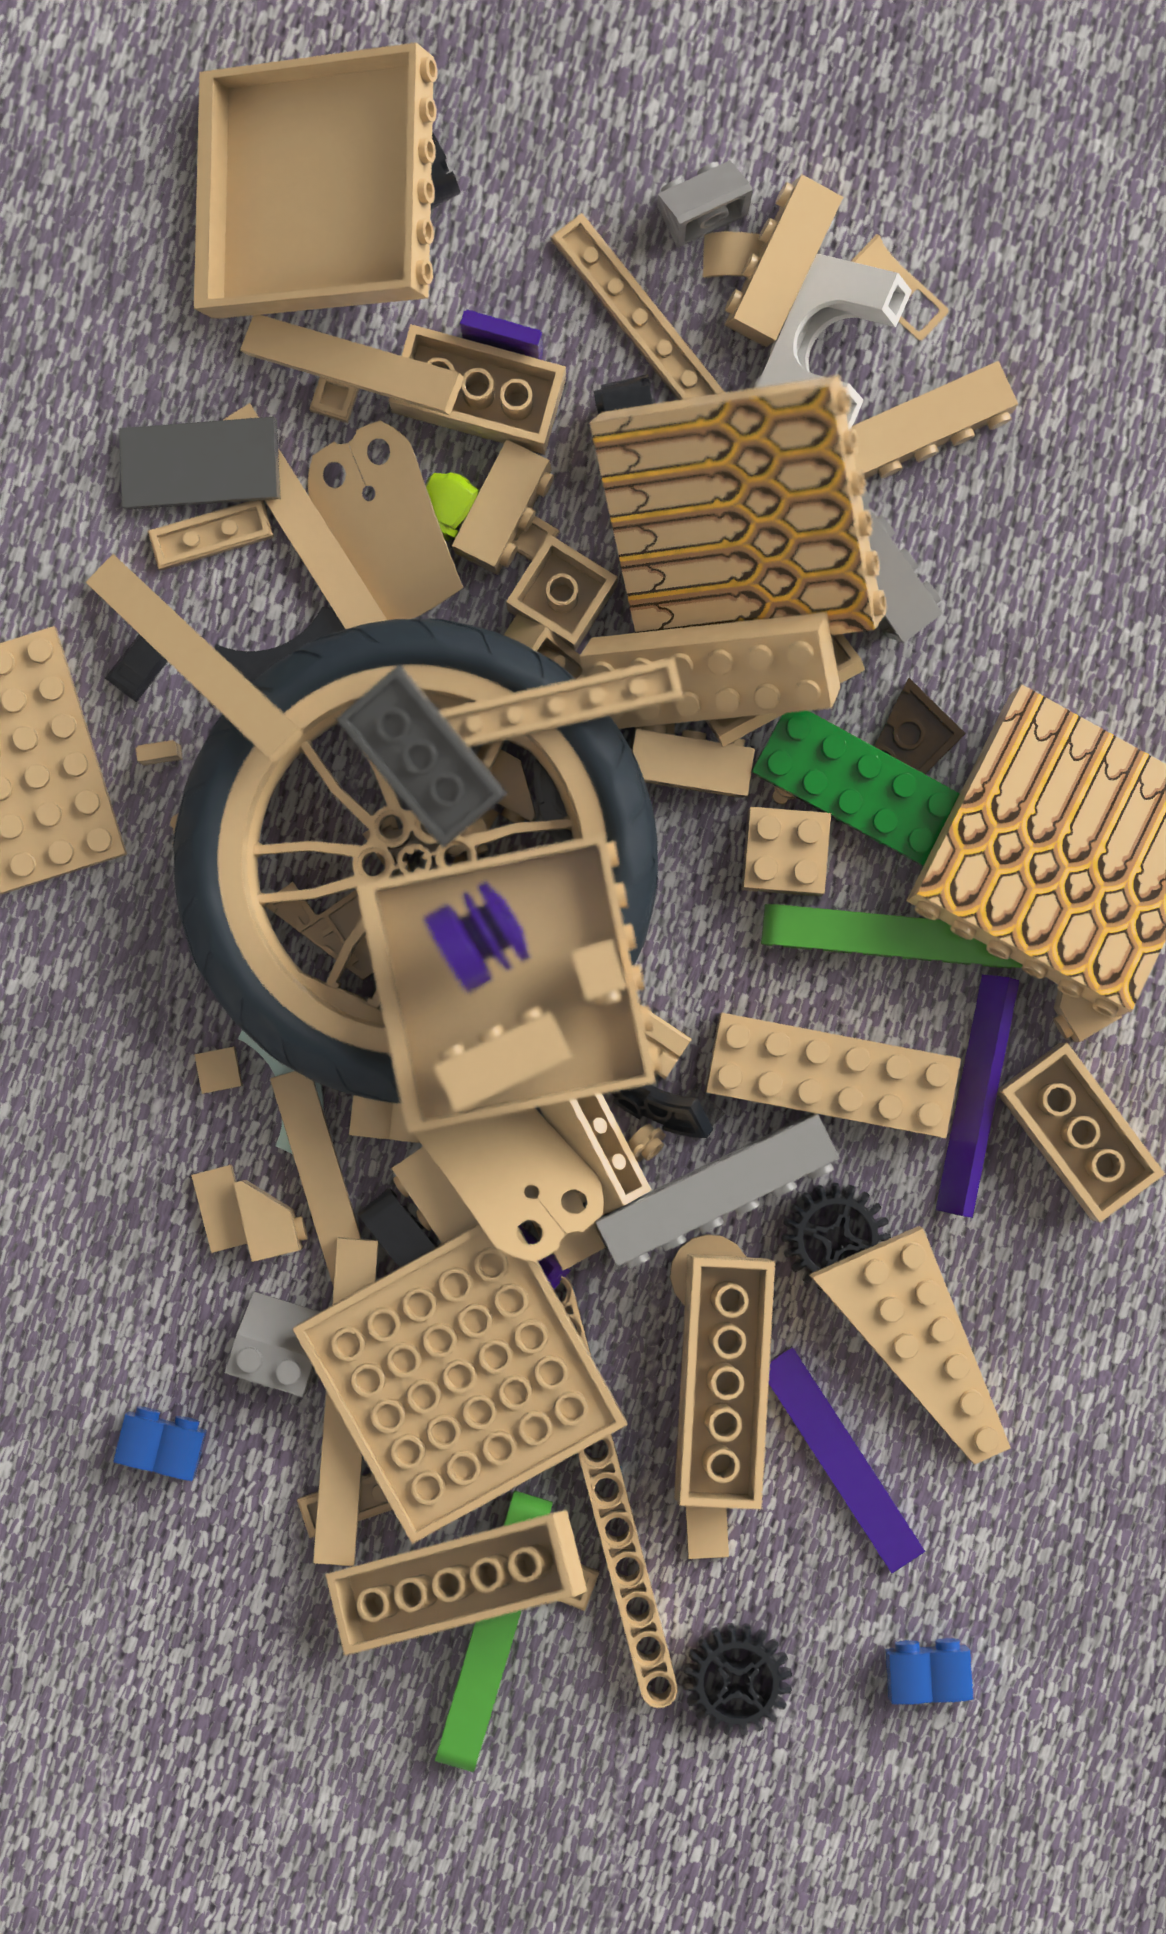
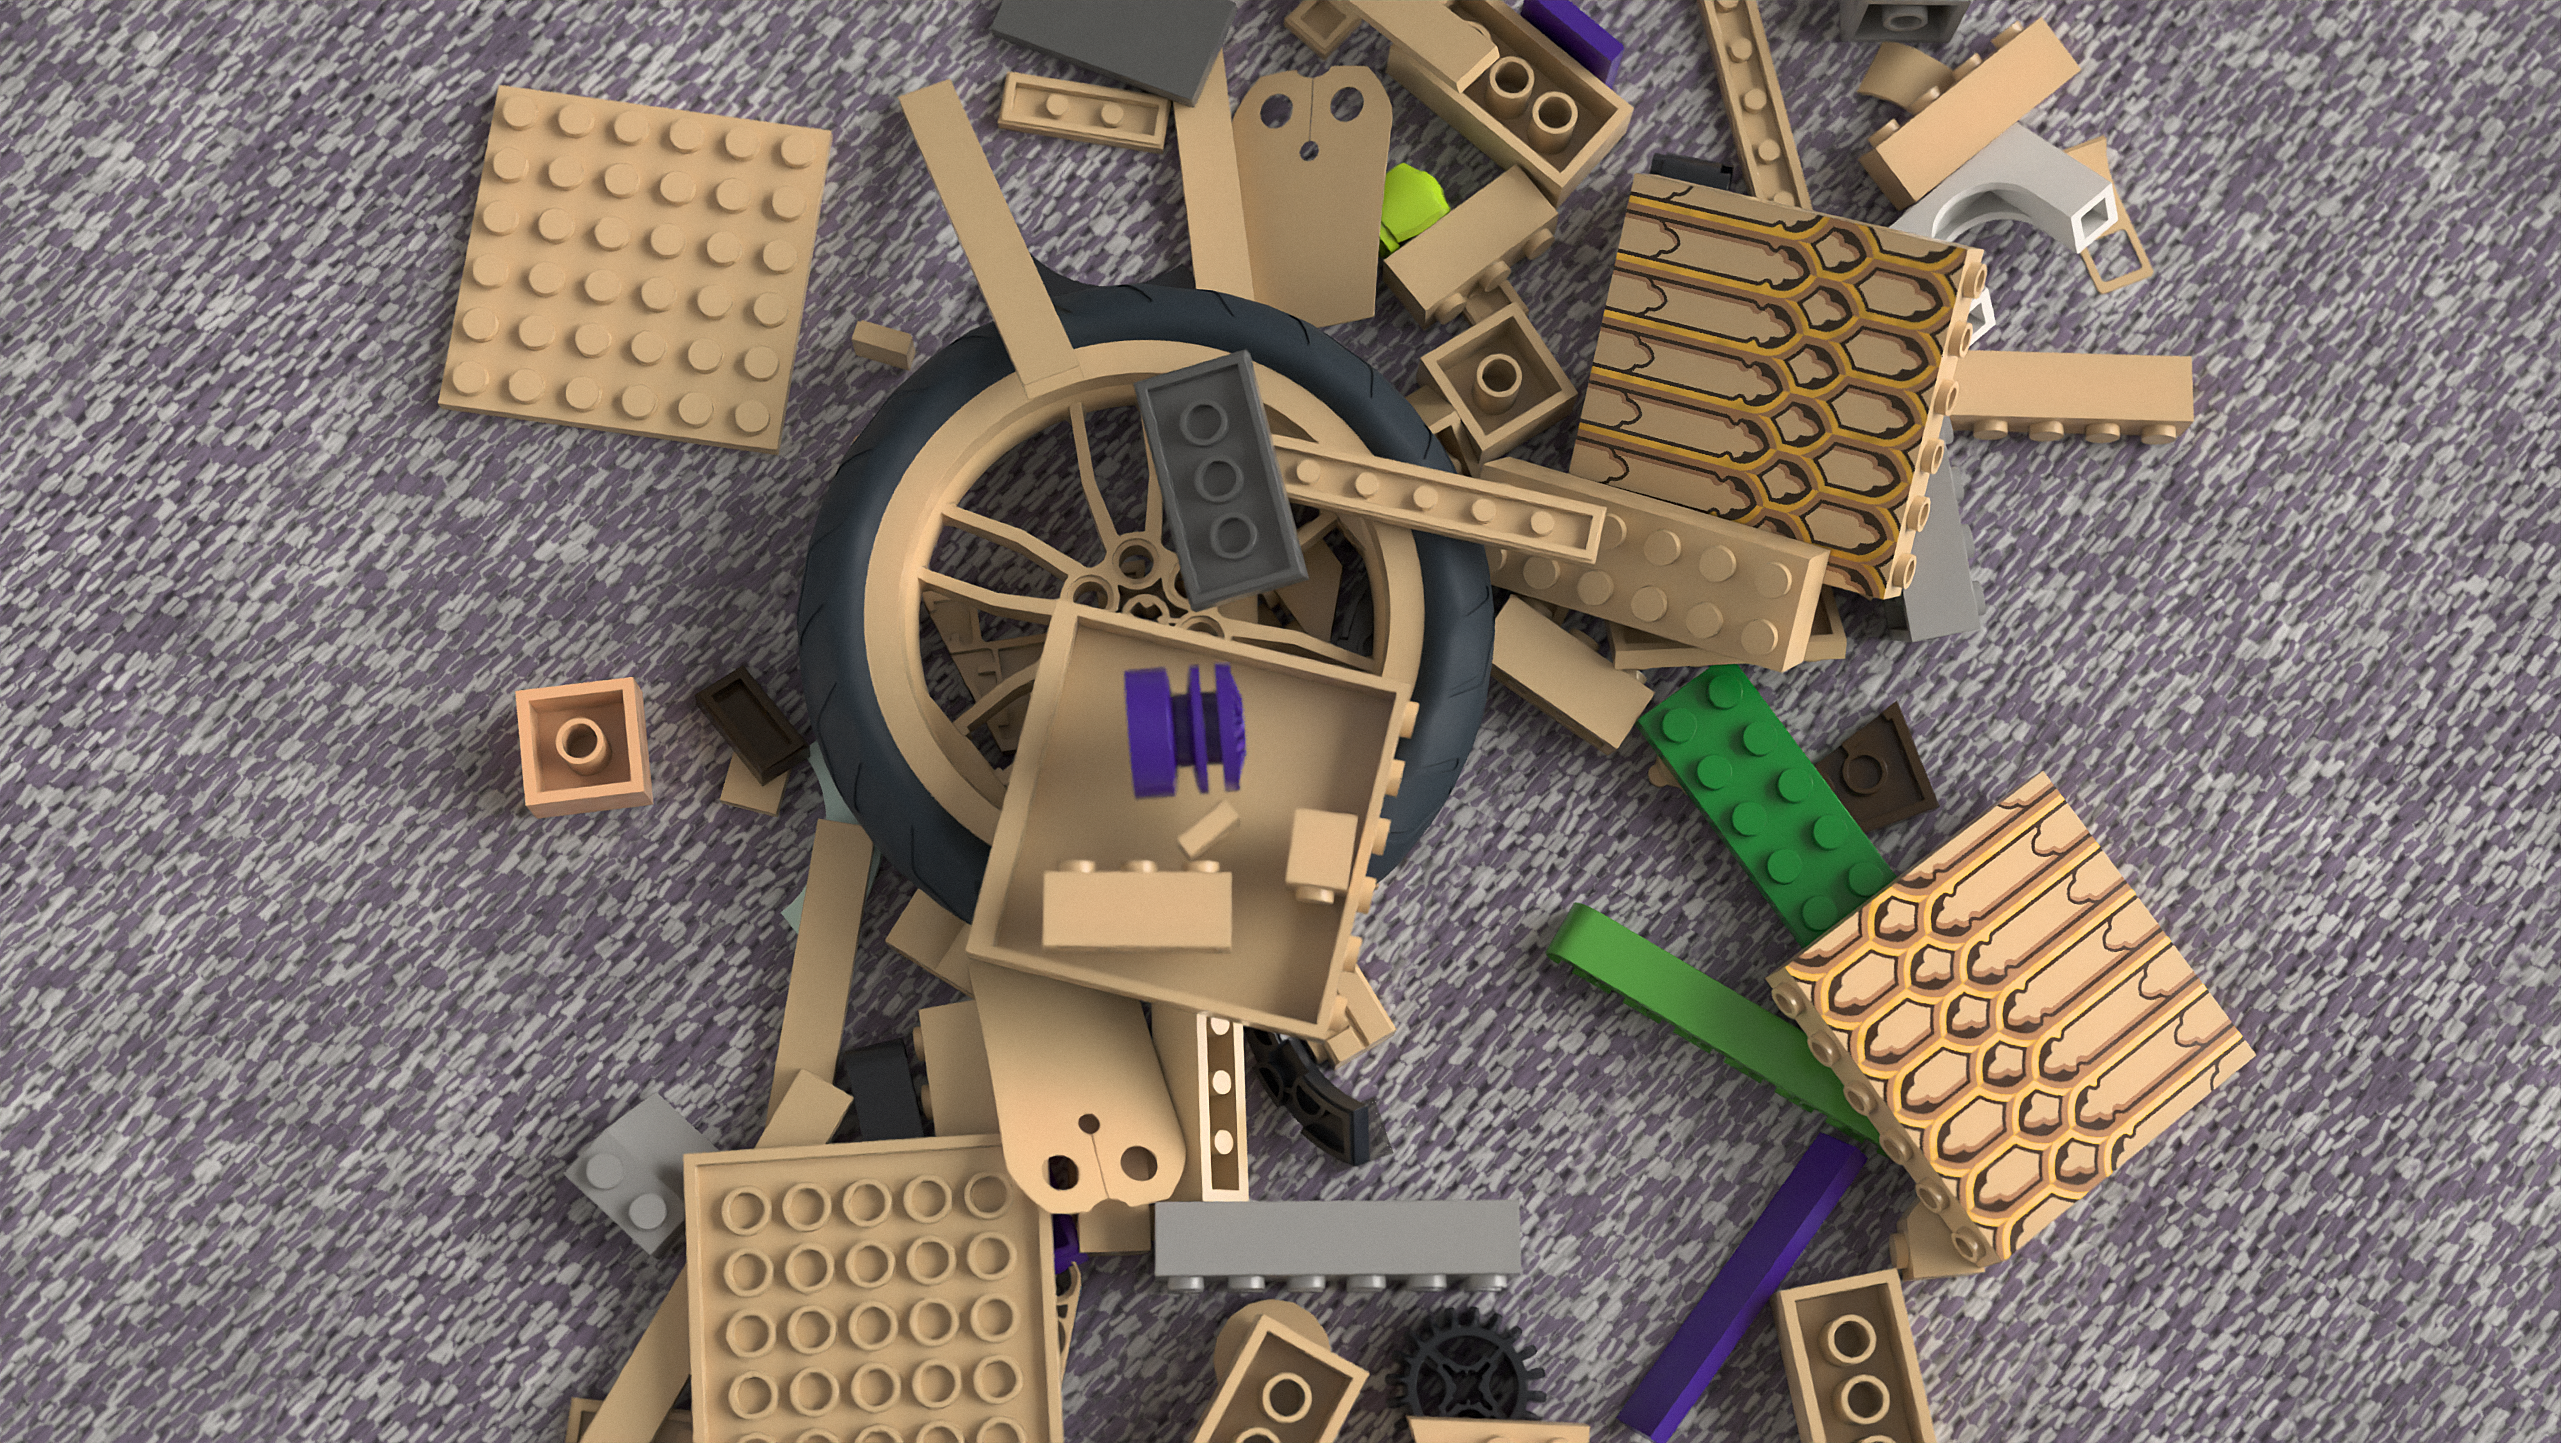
camera: 15 degrees right, 10 degrees down
(101, 1103) = (584, 747): none -> light nougat brick
(136, 668) = (910, 231): black tile -> none
(160, 1444) = (429, 1233): blue brick -> none
(199, 1037) = (752, 725): none -> dark brown tile
(219, 1208) = (669, 962): tan tile -> none
(268, 1223) = (720, 1009): tan slope -> none
(521, 989) = (1207, 830): none -> tan tile
(646, 1142) = (1271, 1140): tan plate -> none
(786, 851) = (1634, 846): tan brick -> none
(832, 1075) = (1565, 1166): tan brick -> none

